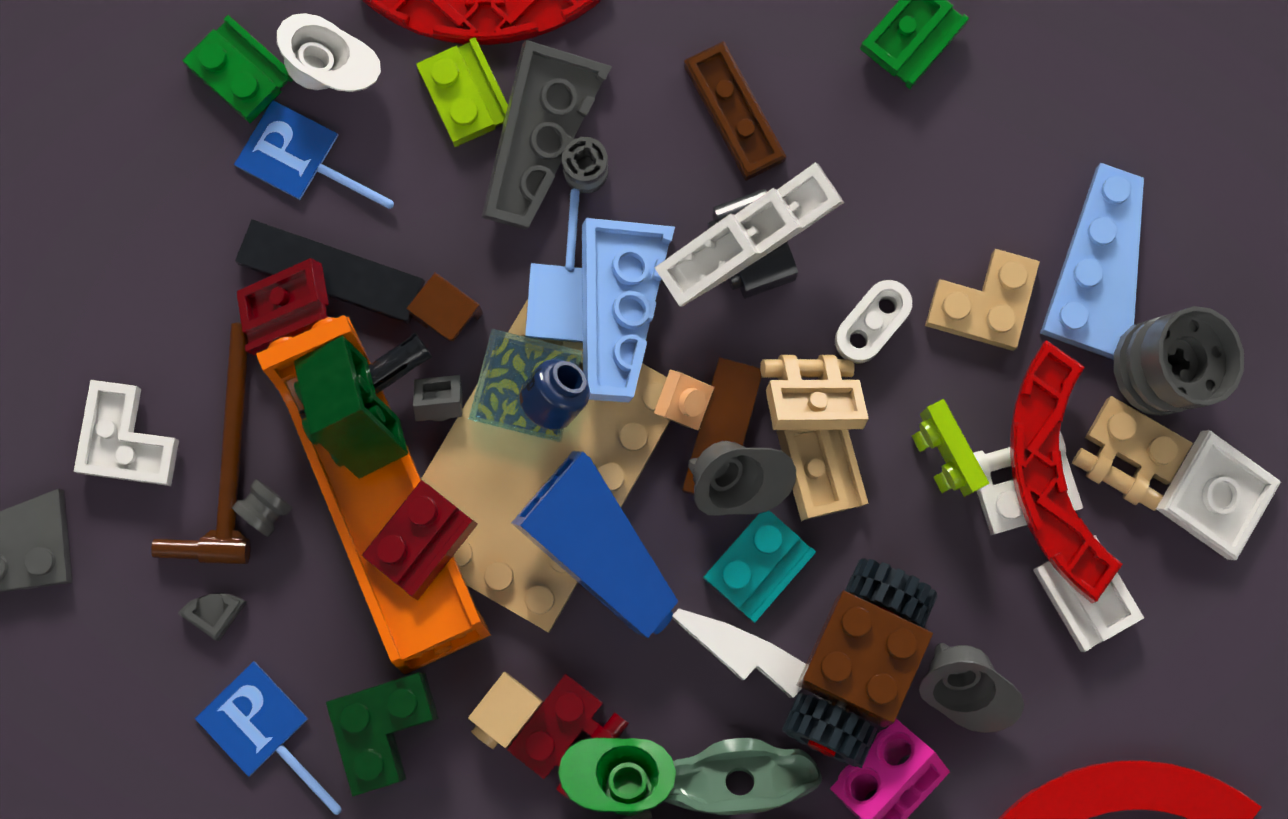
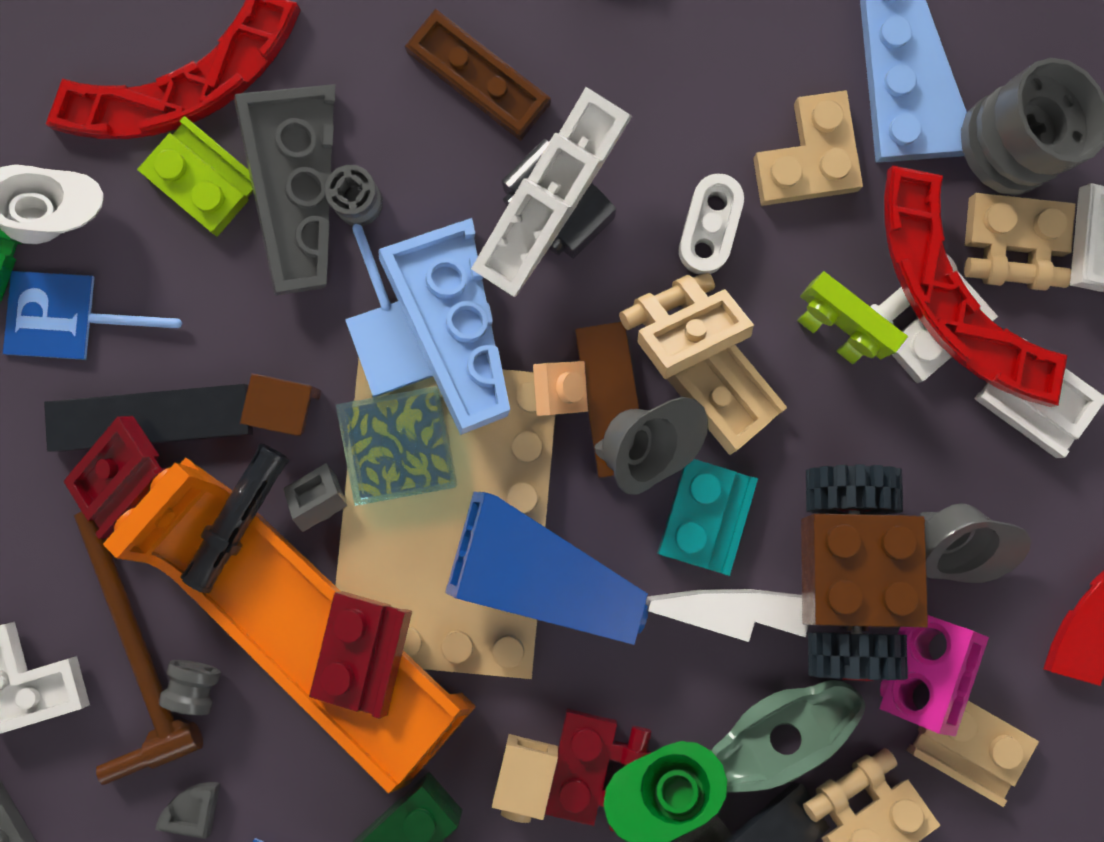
camera: 20 degrees left, 5 degrees up
(345, 411) = (222, 561): dark green brick -> none
(554, 394) = (429, 445): dark blue head -> none

